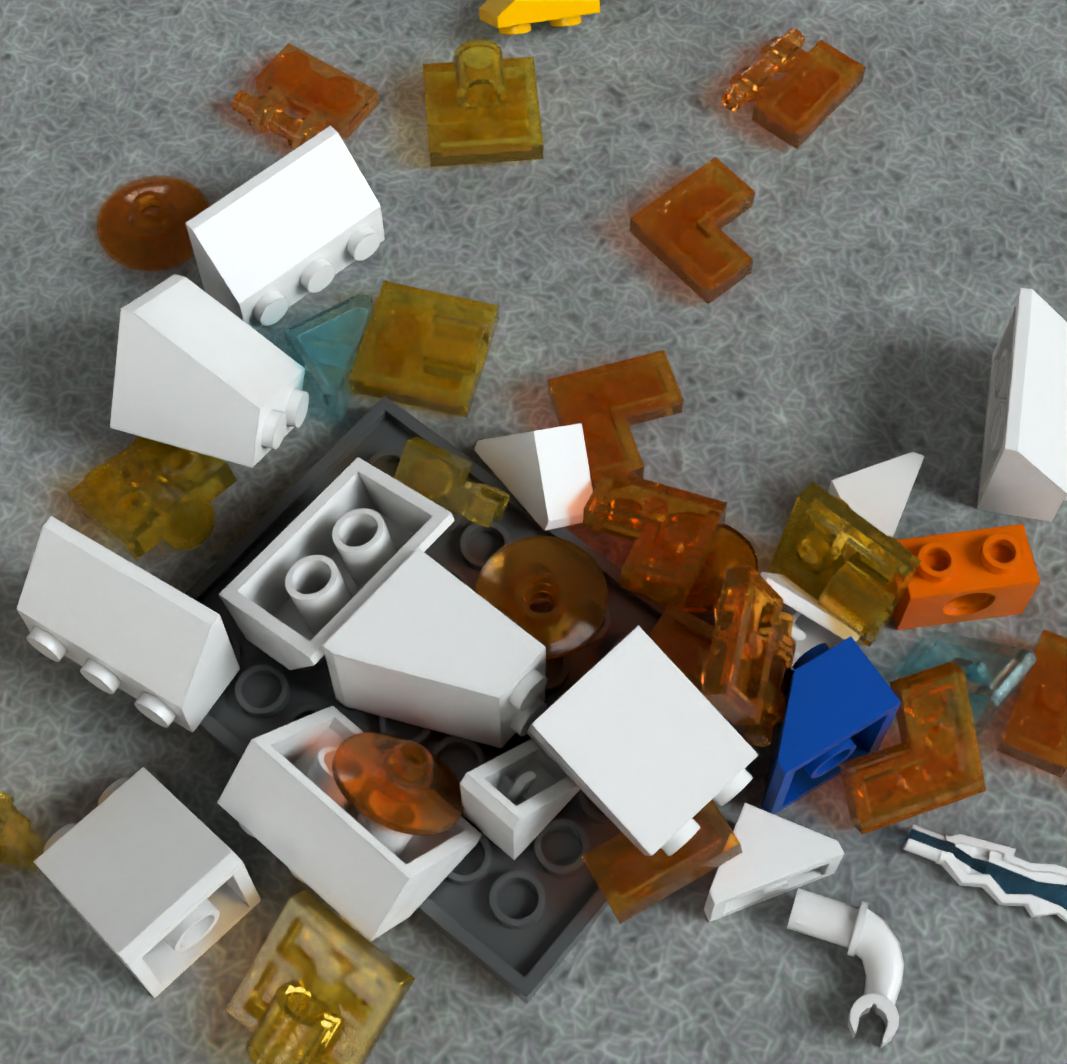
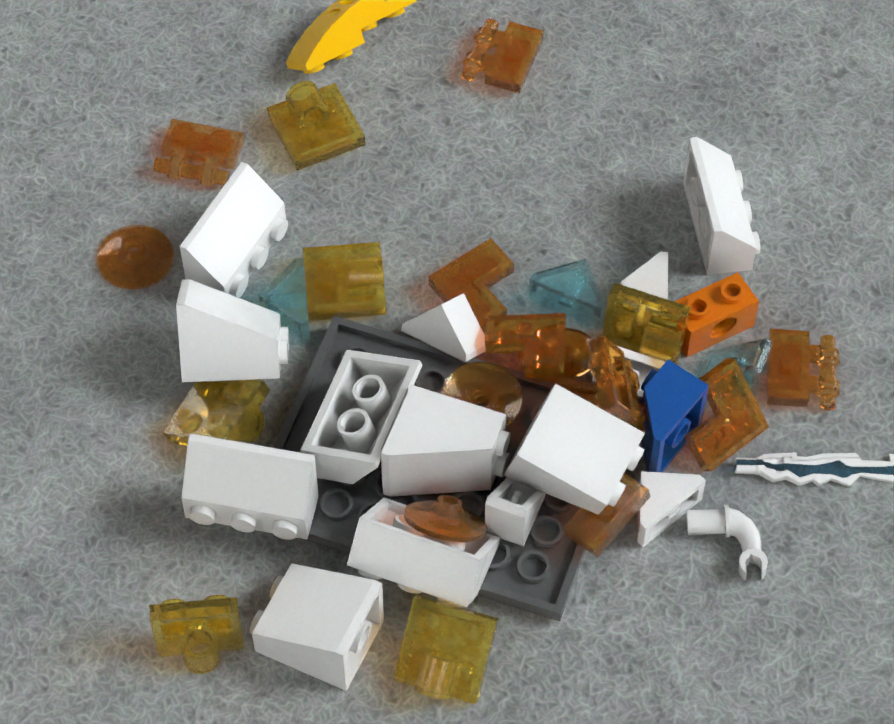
camera: 20 degrees left, 5 degrees down
(443, 480) = (398, 346): clear yellow plate -> none
(687, 233) = (473, 162): clear orange plate -> none
(750, 467) = (569, 291): none -> clear light blue slope

